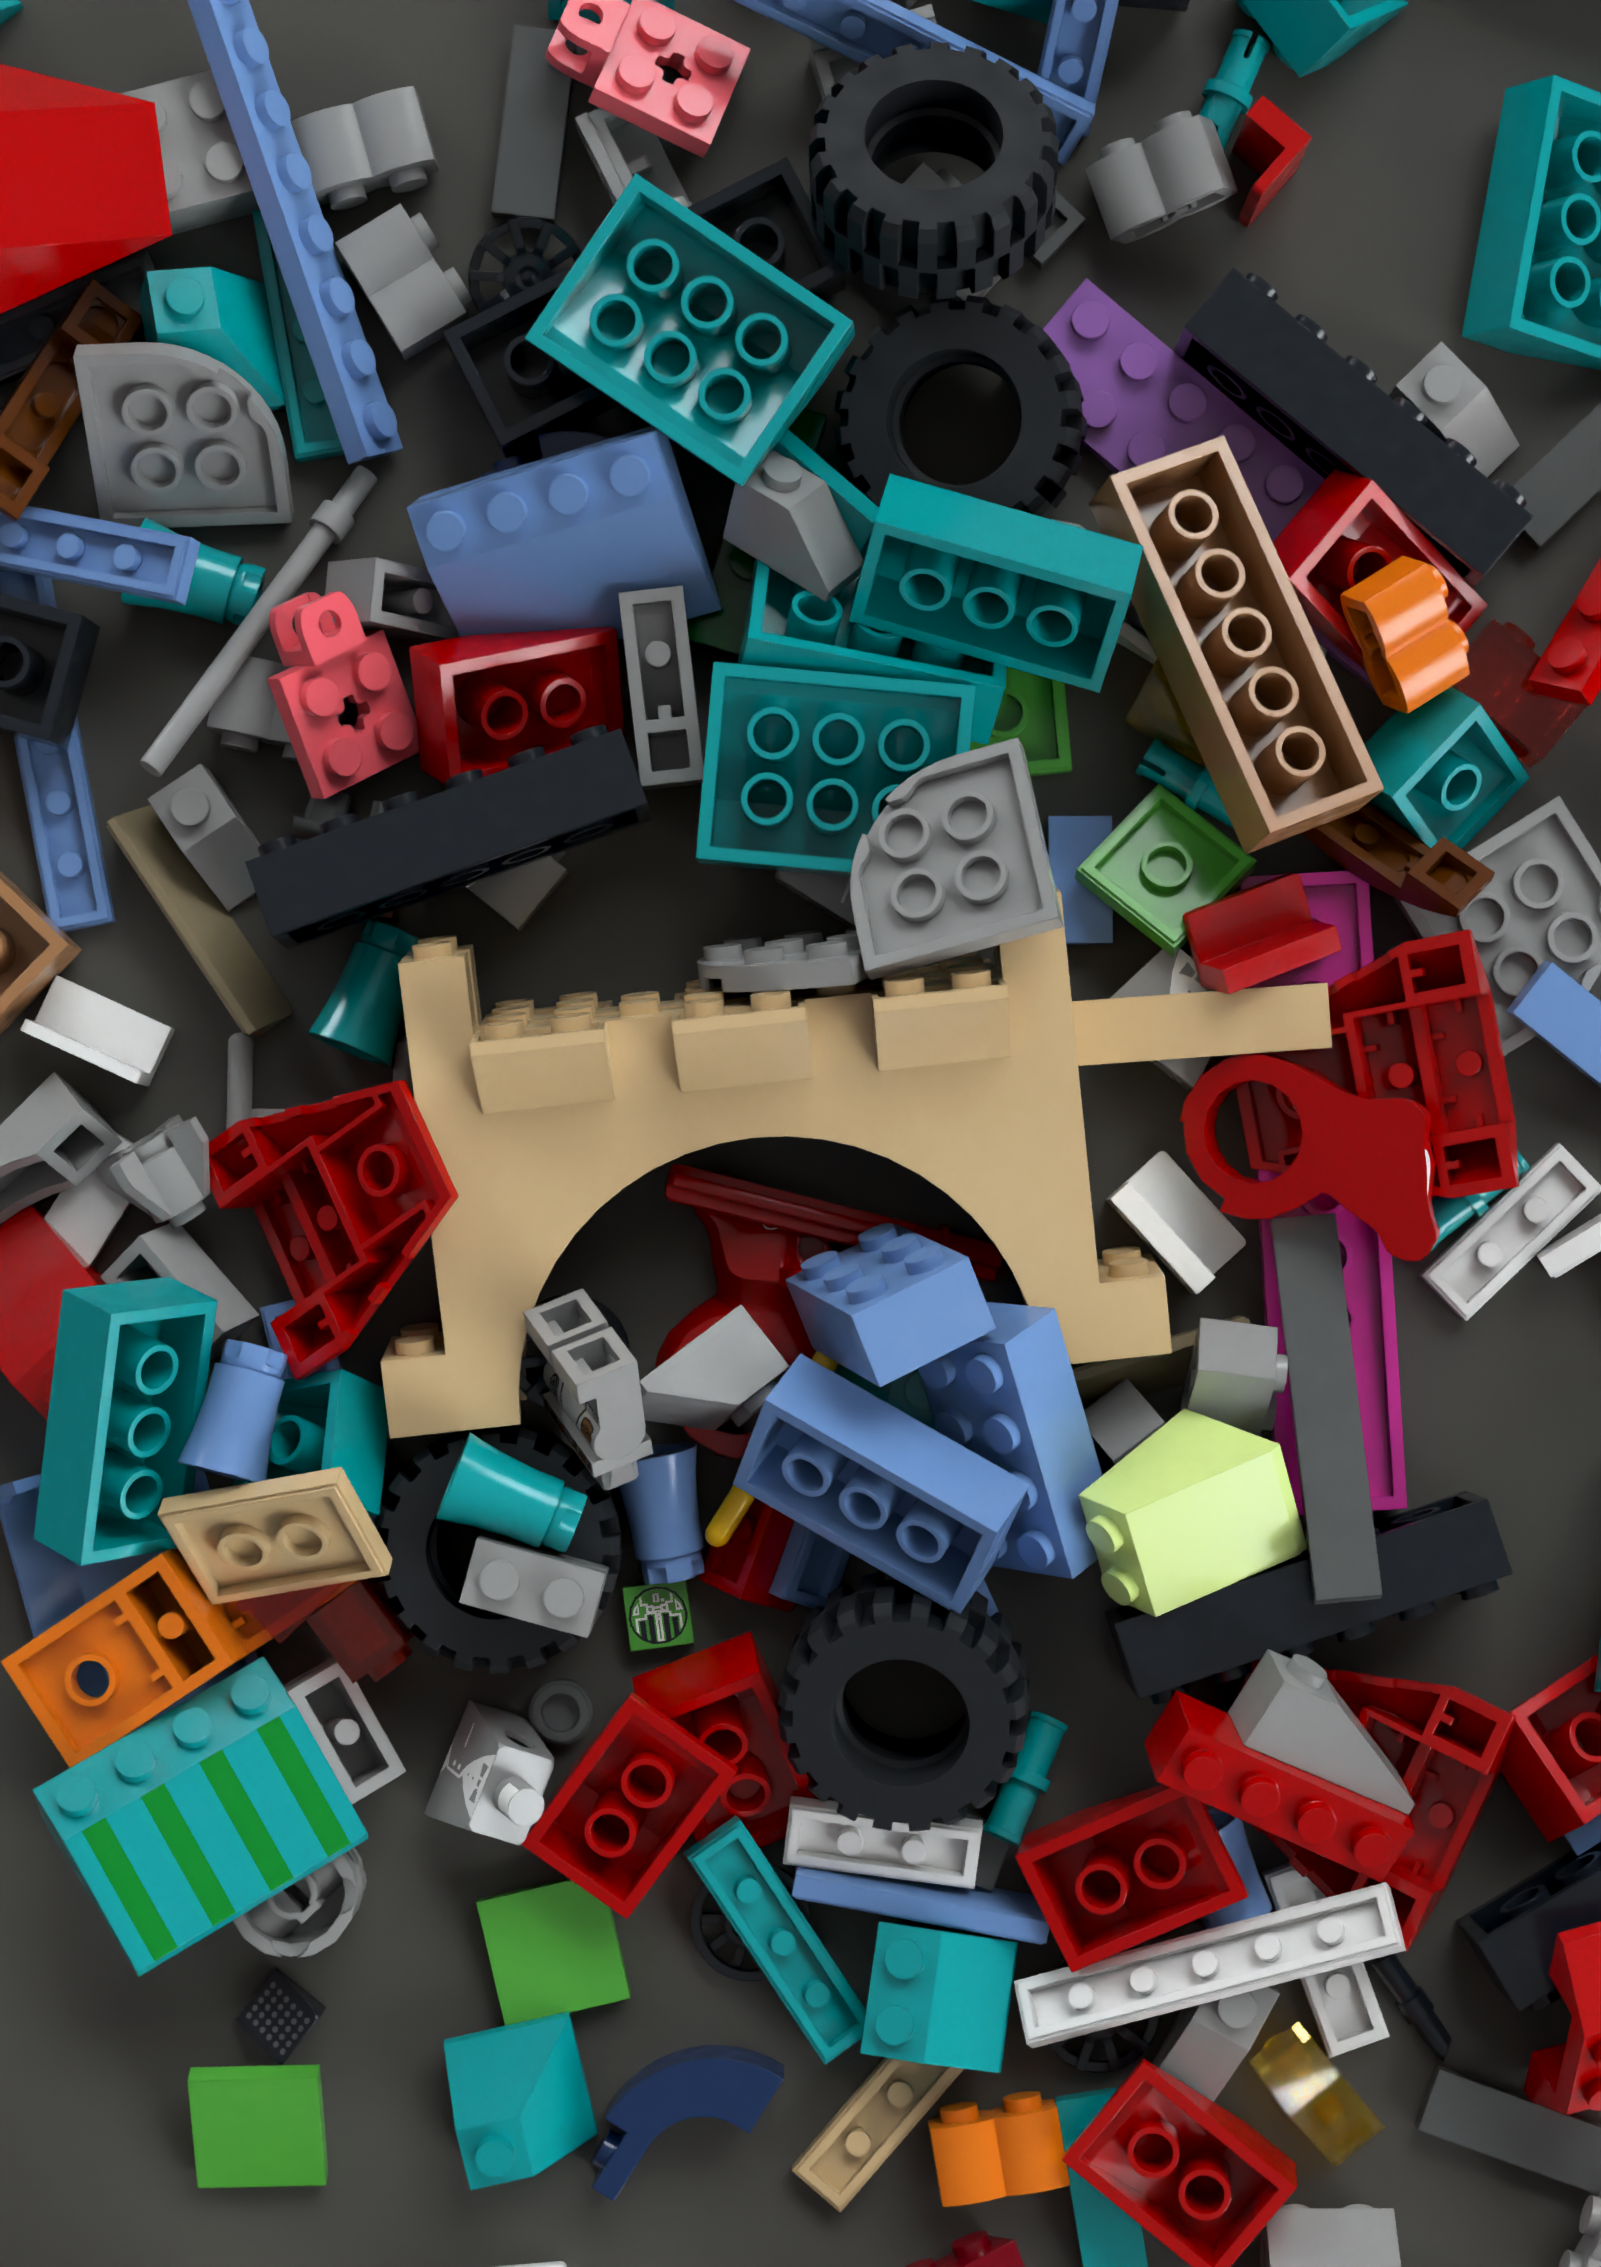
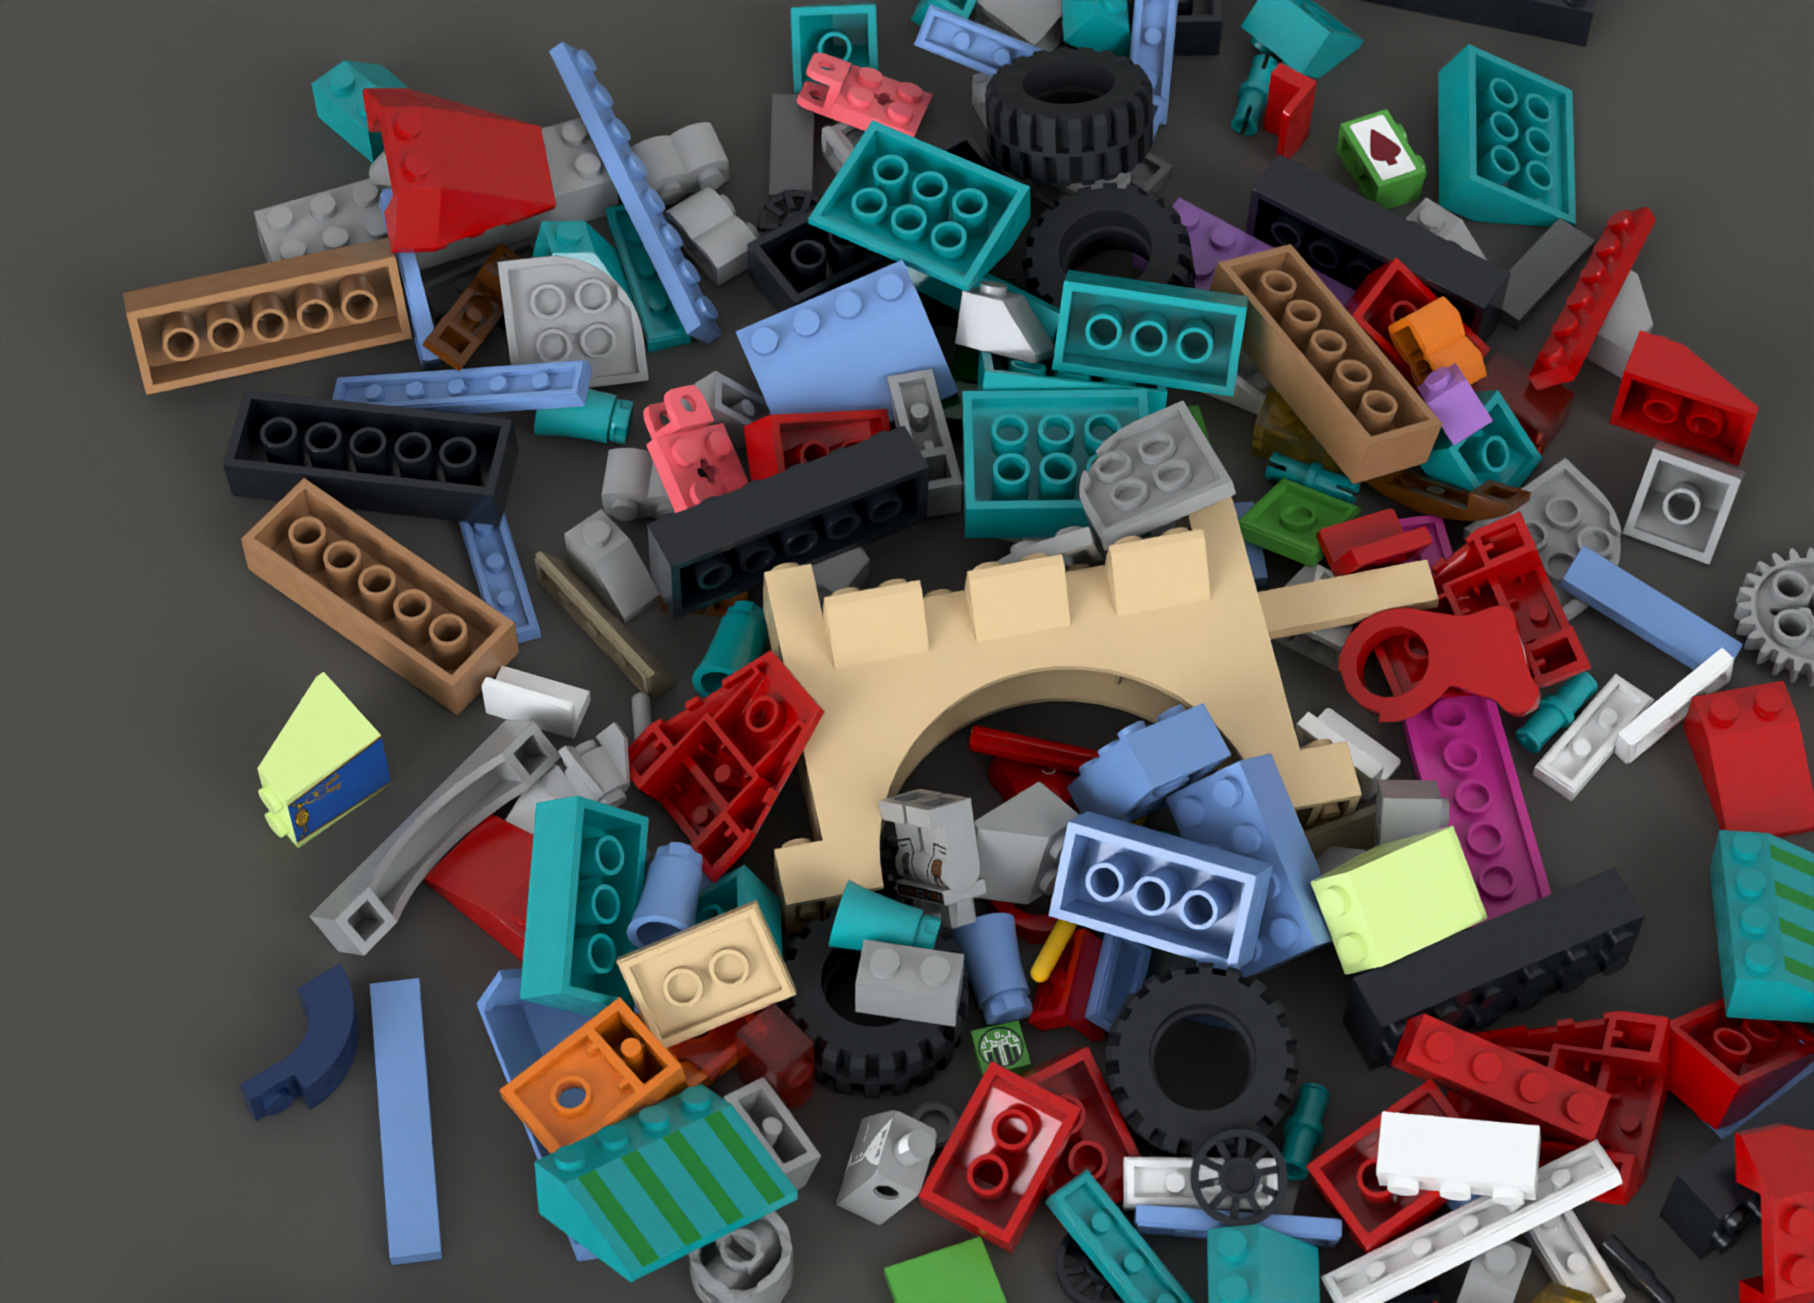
camera: 10 degrees left, 30 degrees down
(328, 526) = (676, 375): light grey bar -> none
(925, 1872) = (1239, 1177): none -> black wheel
(1161, 178) = (1219, 134): light grey brick -> none
(1202, 1905) = (1458, 1157): none -> white brick
(1303, 1721) = (1519, 1024): light grey slope -> none
(1325, 1409) = (1483, 830): dark grey tile -> none
(1393, 243) = (1381, 159): none -> bright green brick
(1411, 737) = (1454, 403): none -> medium lavender brick

